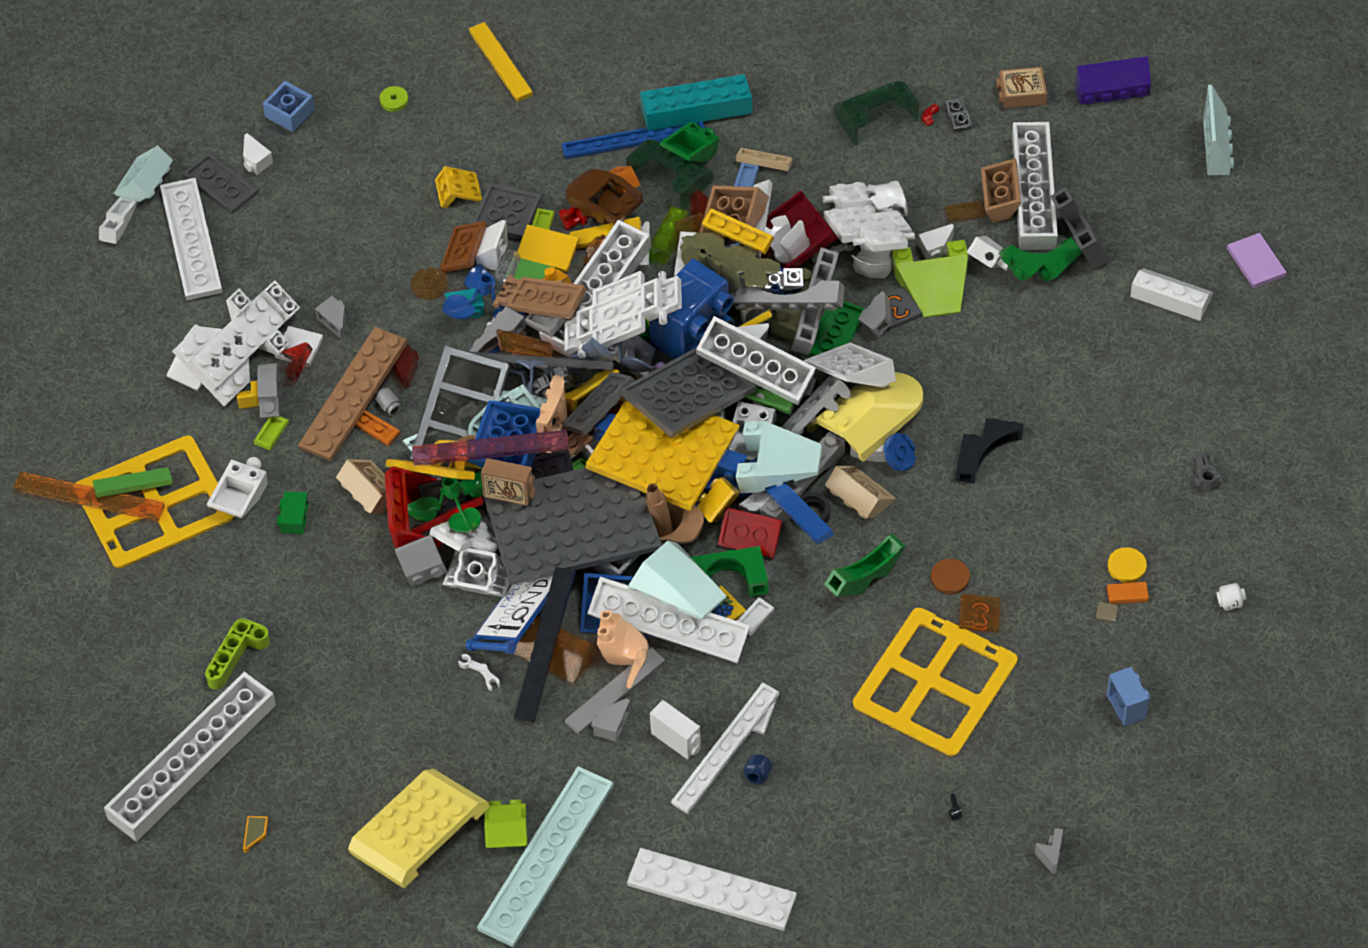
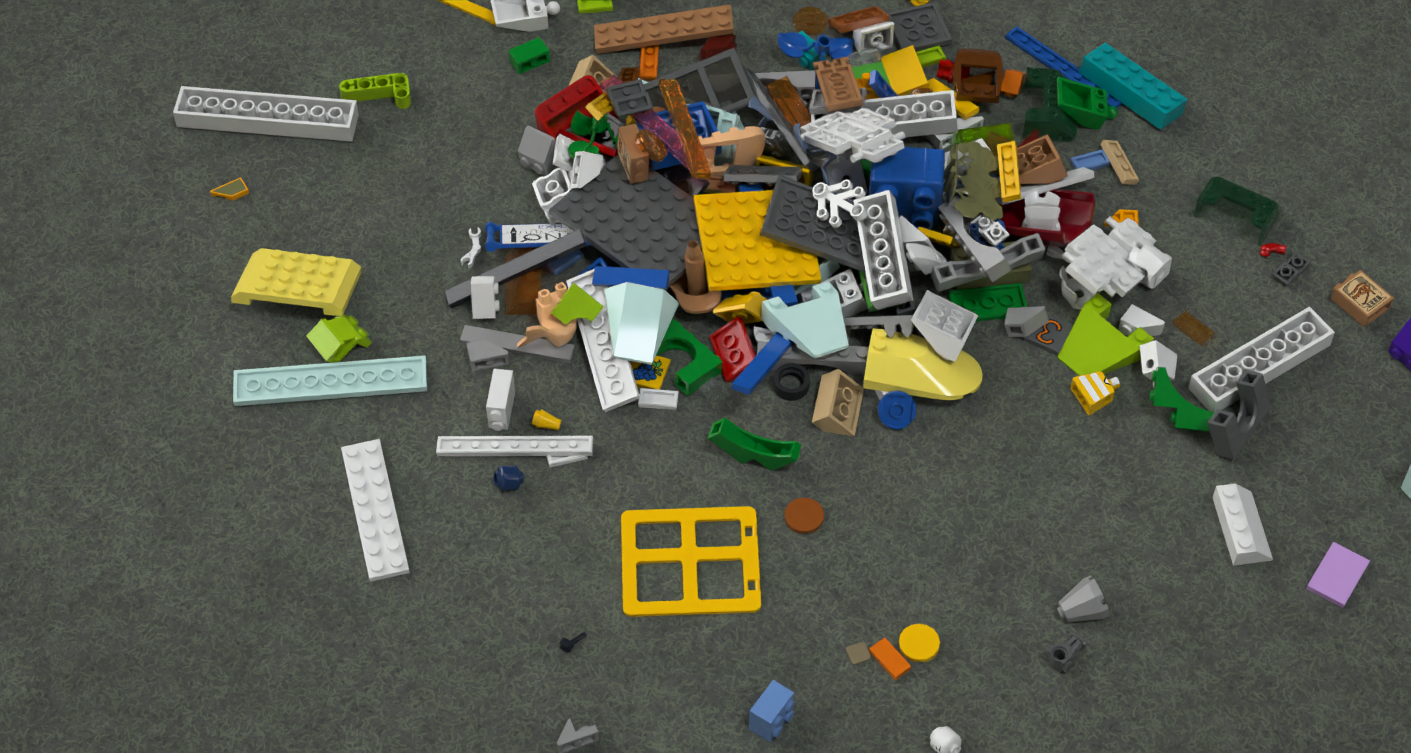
camera: 55 degrees right, 0 degrees up
(388, 401) = (676, 55): light grey brick -> none
(391, 448) = (629, 74): none -> reddish brown plate
(452, 448) = (629, 98): none -> dark grey slope
(491, 529) = (585, 168): none -> white slope
(517, 426) = (685, 129): none -> clear orange tile
(521, 459) = (651, 144): none -> clear orange tile
(554, 686) = (483, 297): none -> white brick
(565, 269) = (880, 85): none -> blue tile
(629, 616) = (575, 305): none -> lime tile
(633, 559) = (614, 276): none -> blue tile
(685, 361) = (823, 191): none -> white plant
(714, 712) = (545, 420): none -> yellow cone
(781, 339) = (924, 257): none -> white slope
(821, 189) = (1122, 215): none -> light orange tile
(977, 448) = (948, 464): black arch -> none
(978, 311) = (1094, 390): none -> yellow torso
(979, 613) = (782, 556): clear orange tile -> none
(1001, 190) = (1229, 335): medium nougat slope -> none
(1172, 431) = (1083, 602): none -> light grey cone

